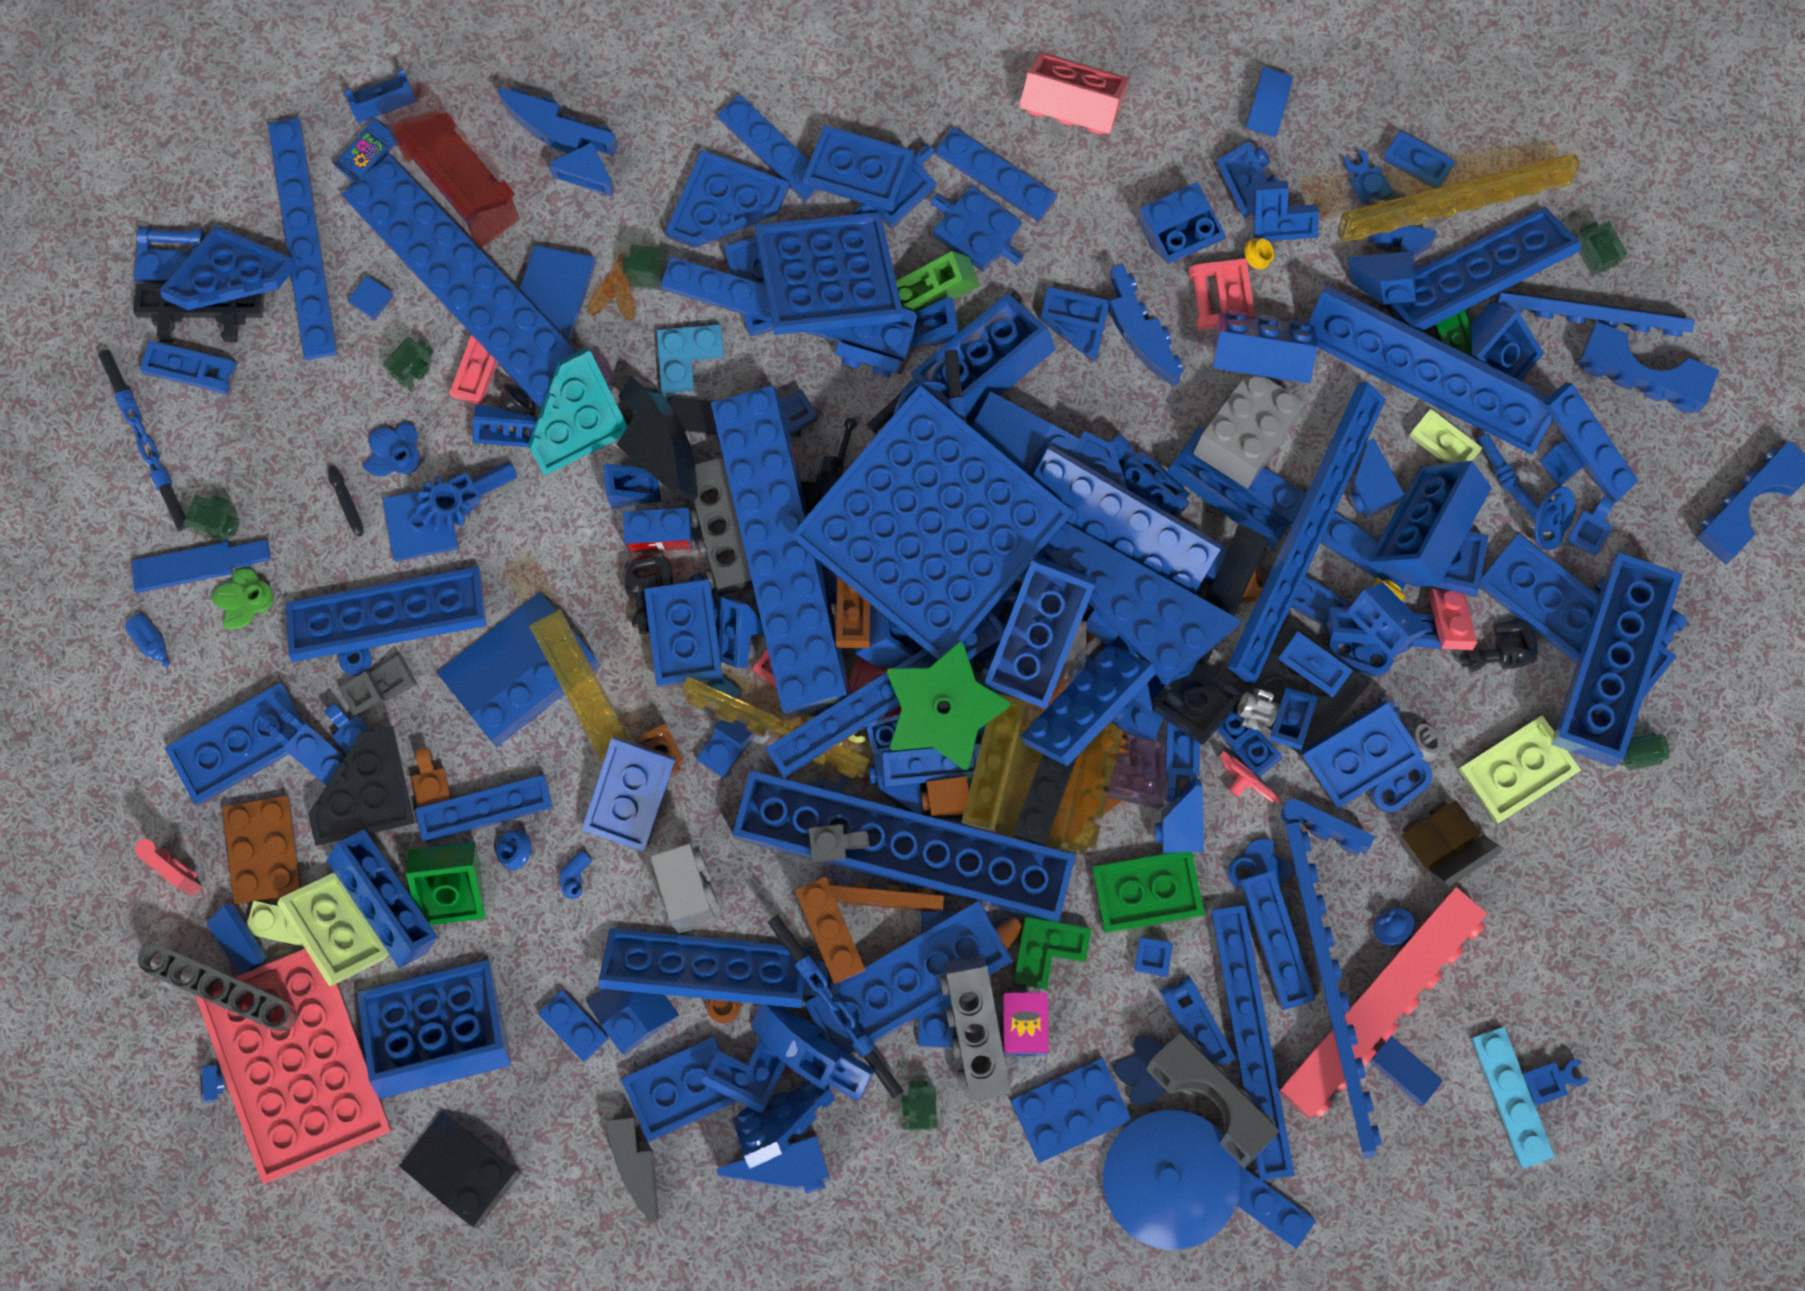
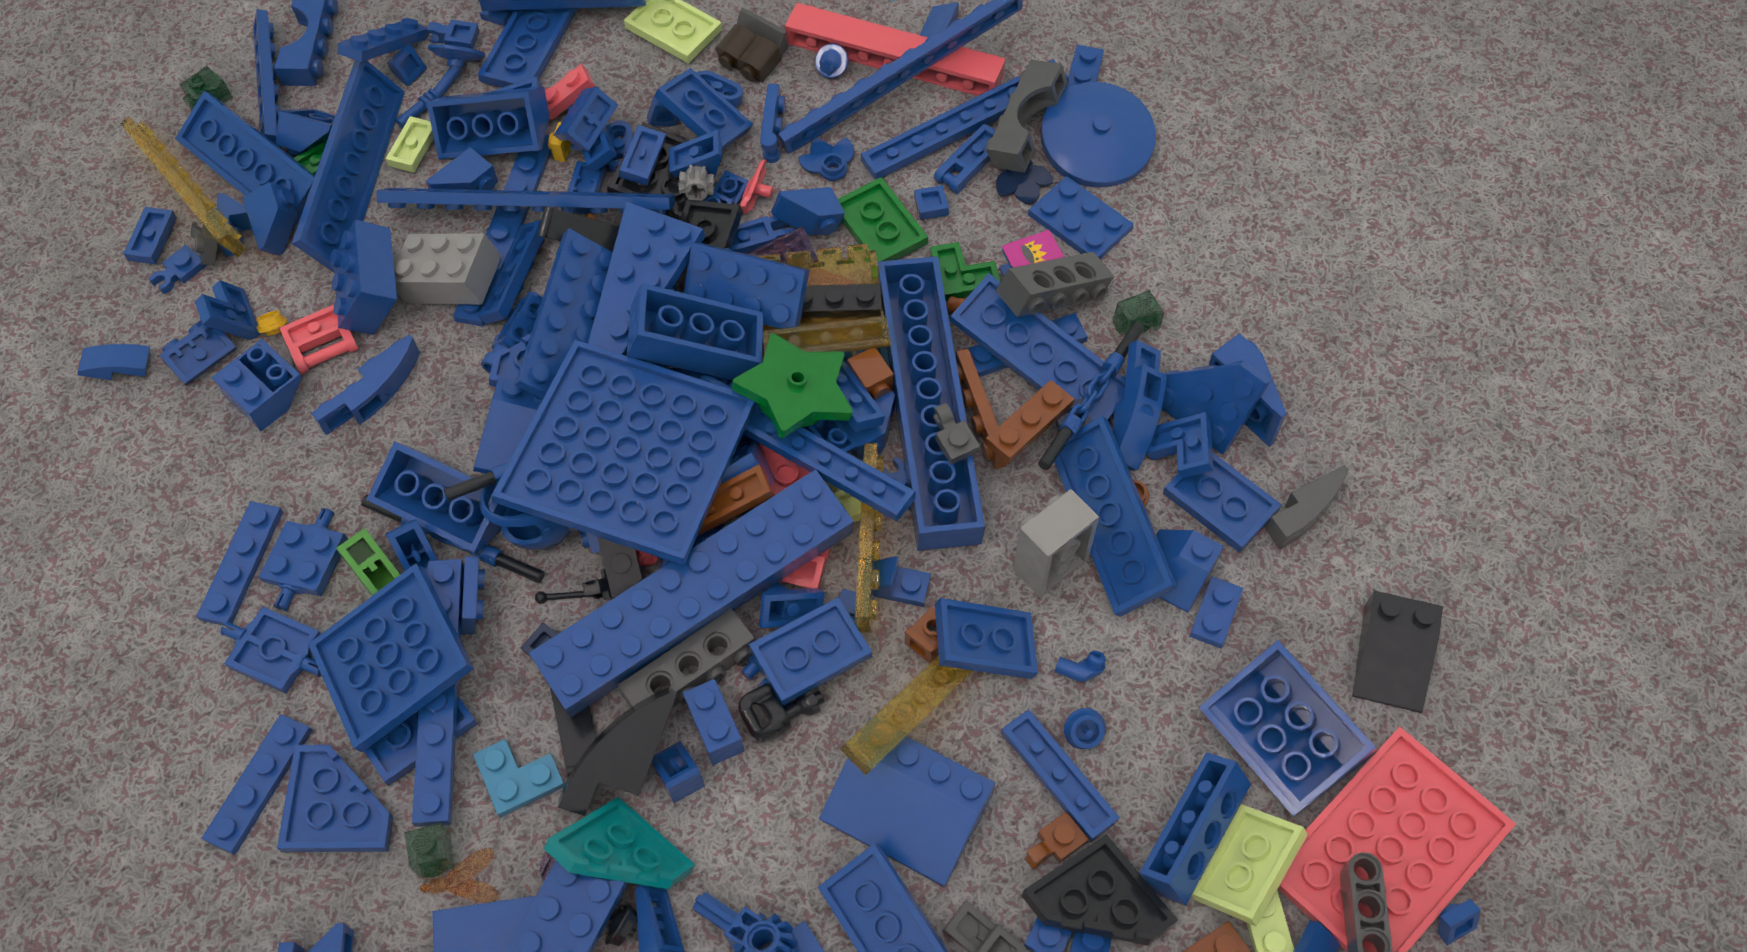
camera: 115 degrees left, 15 degrees down
(446, 882) = (1145, 777): green slope -> none
(858, 168) = (263, 676): blue plate -> none
(1073, 93) = (137, 520): coral slope -> none
(1076, 319) = (373, 438): blue wing -> none
(1277, 940) = (877, 125): blue plate -> none
(1507, 652) = (576, 52): black piece -> none

